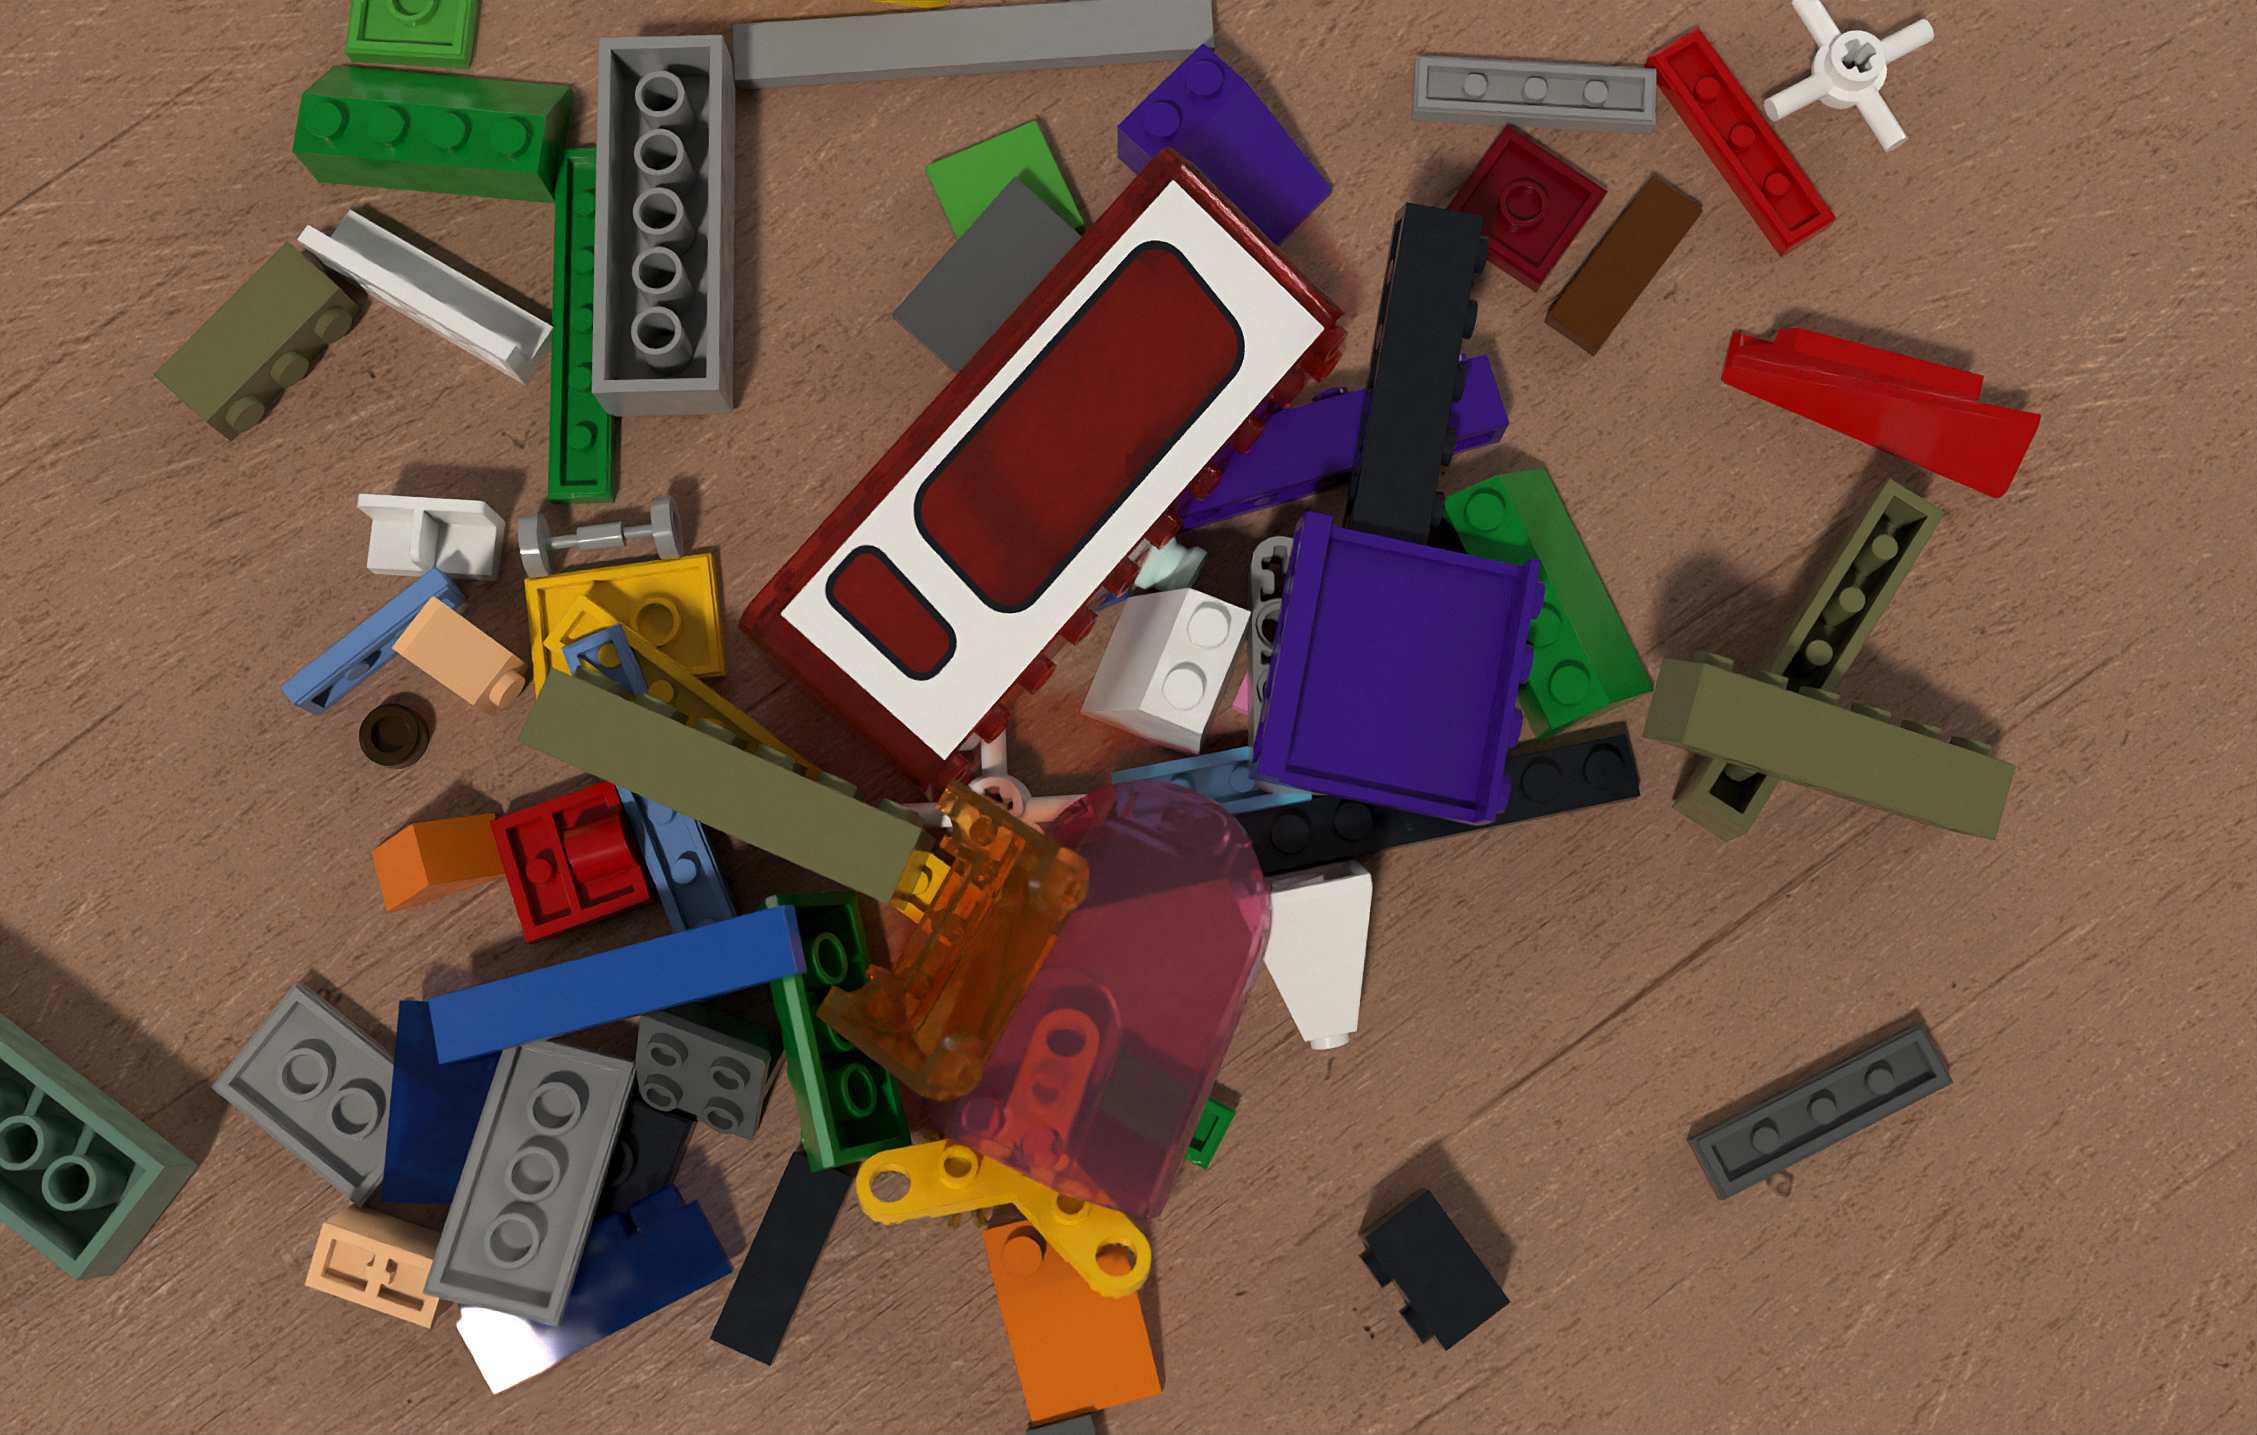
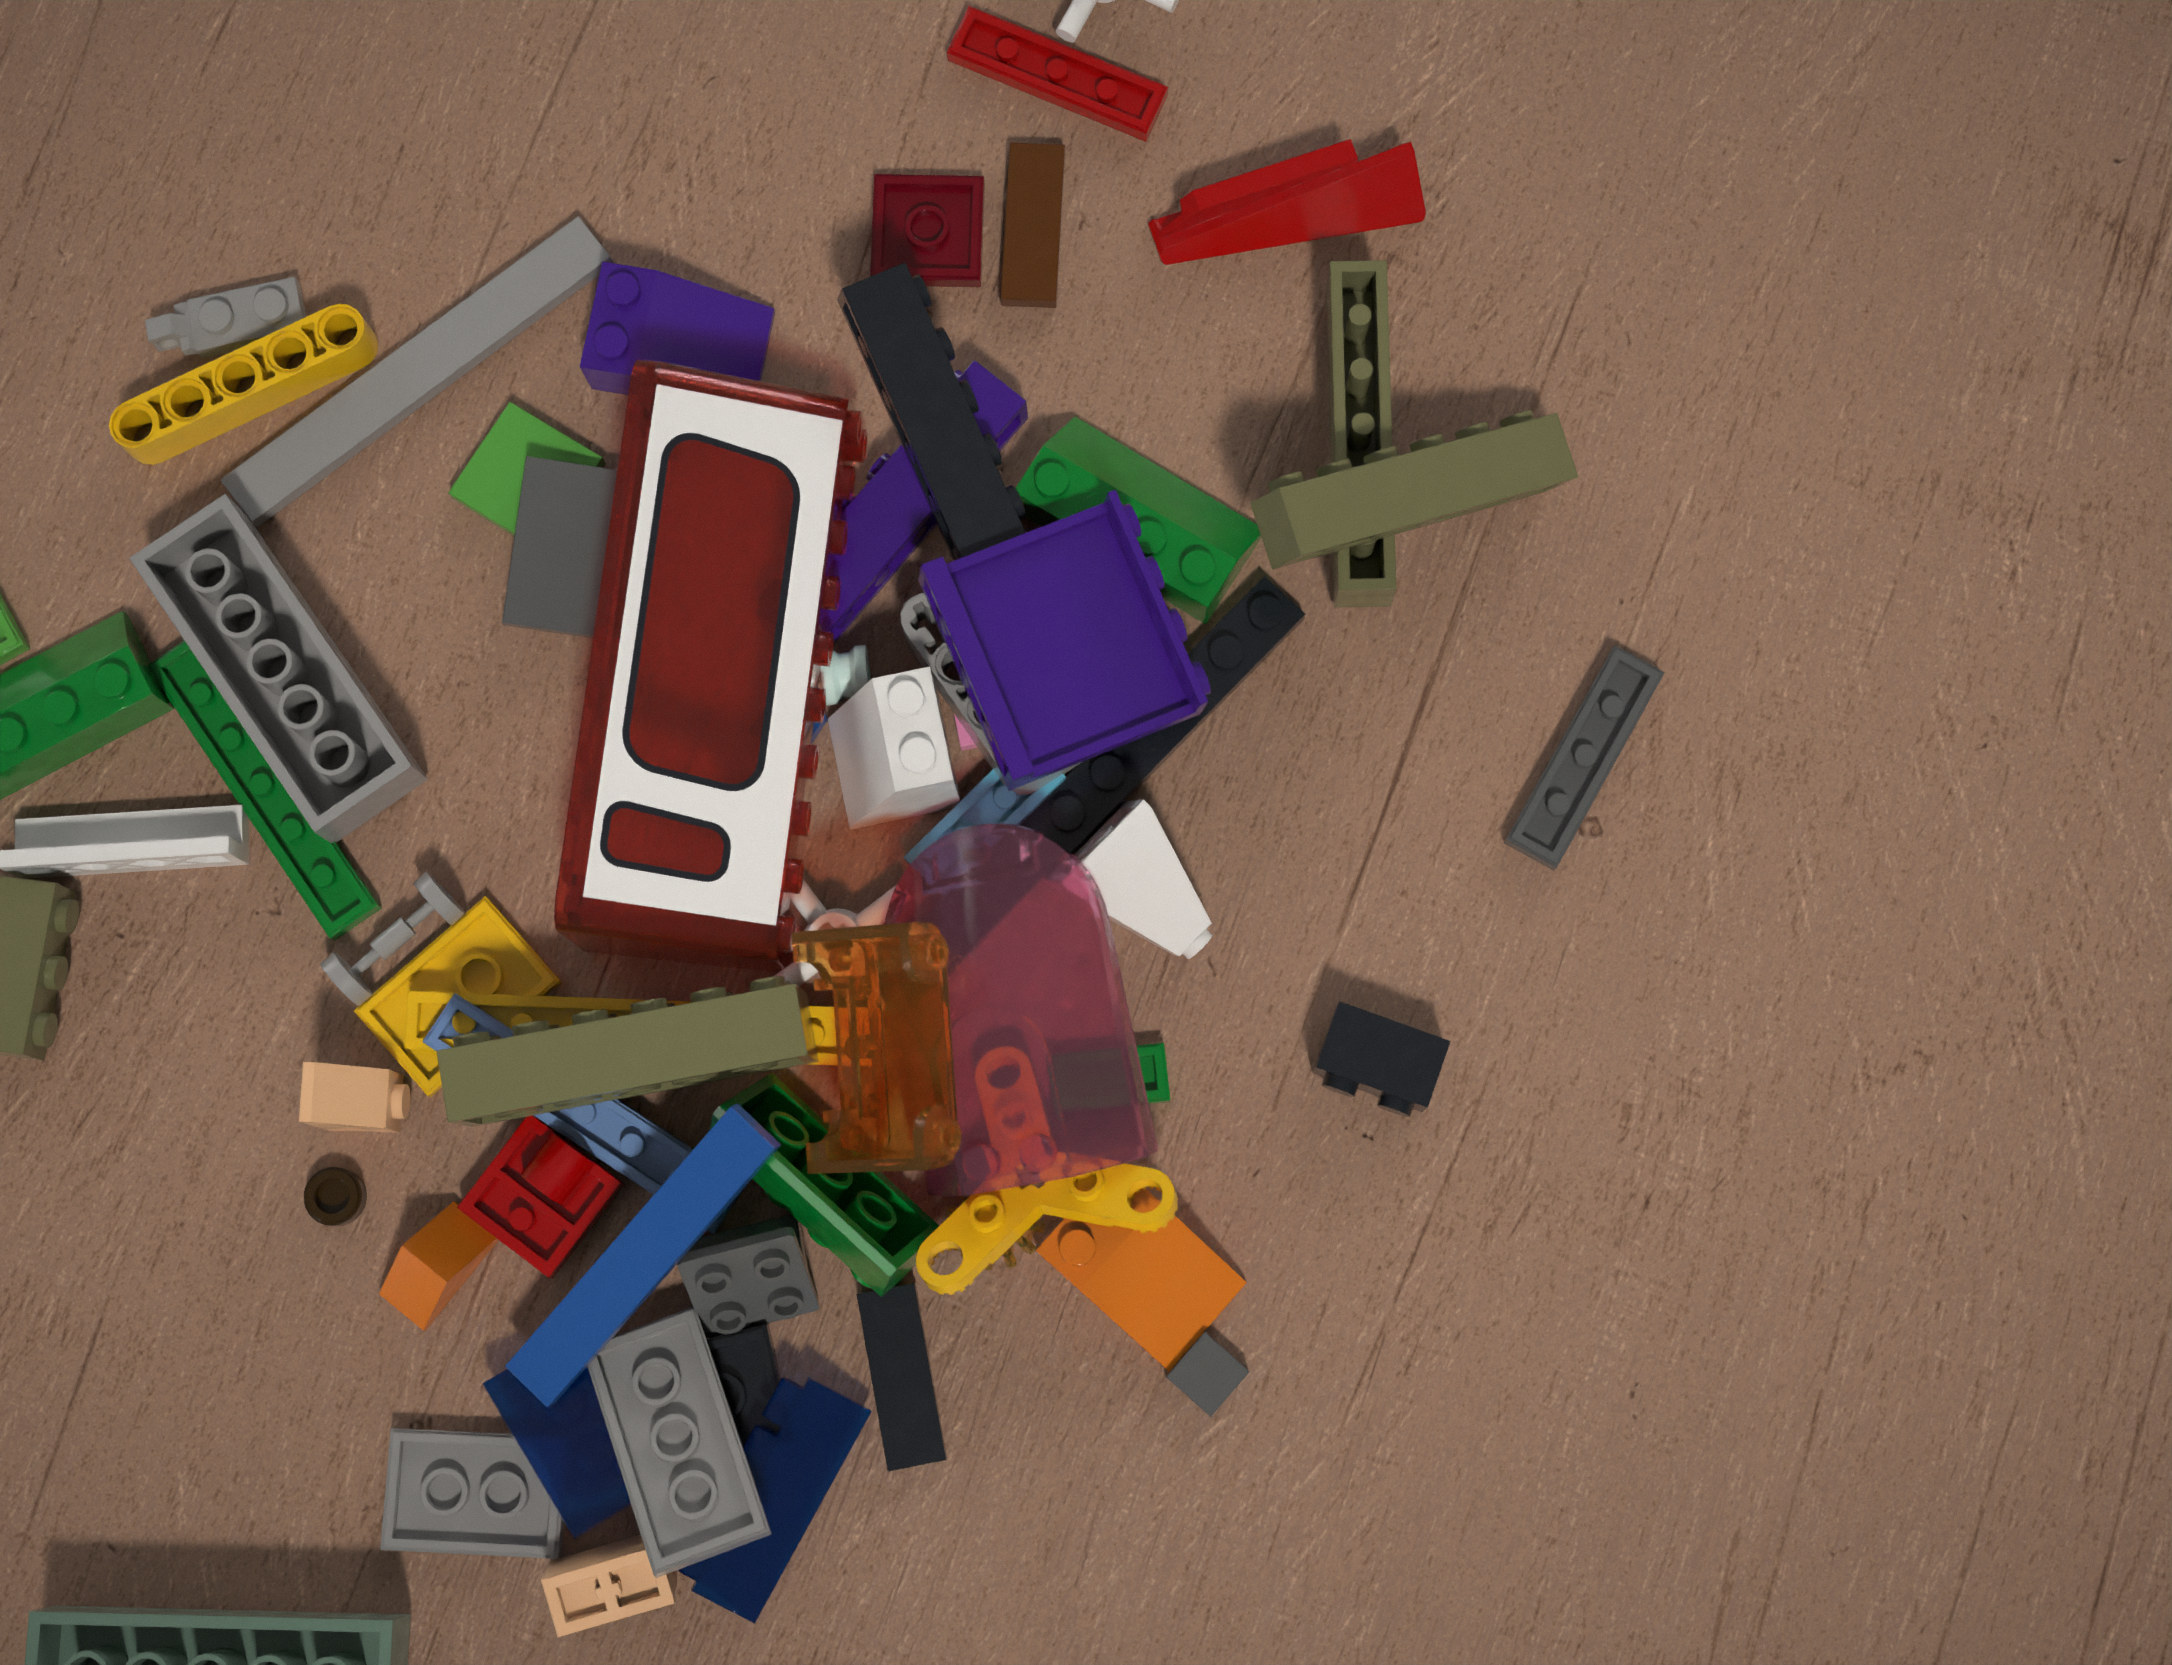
camera: 30 degrees left, 0 degrees up
(367, 646) = (270, 1138): medium blue tile -> none
(427, 533) = (260, 1026): white panel -> none
(1534, 94) = (878, 136): light grey tile -> none

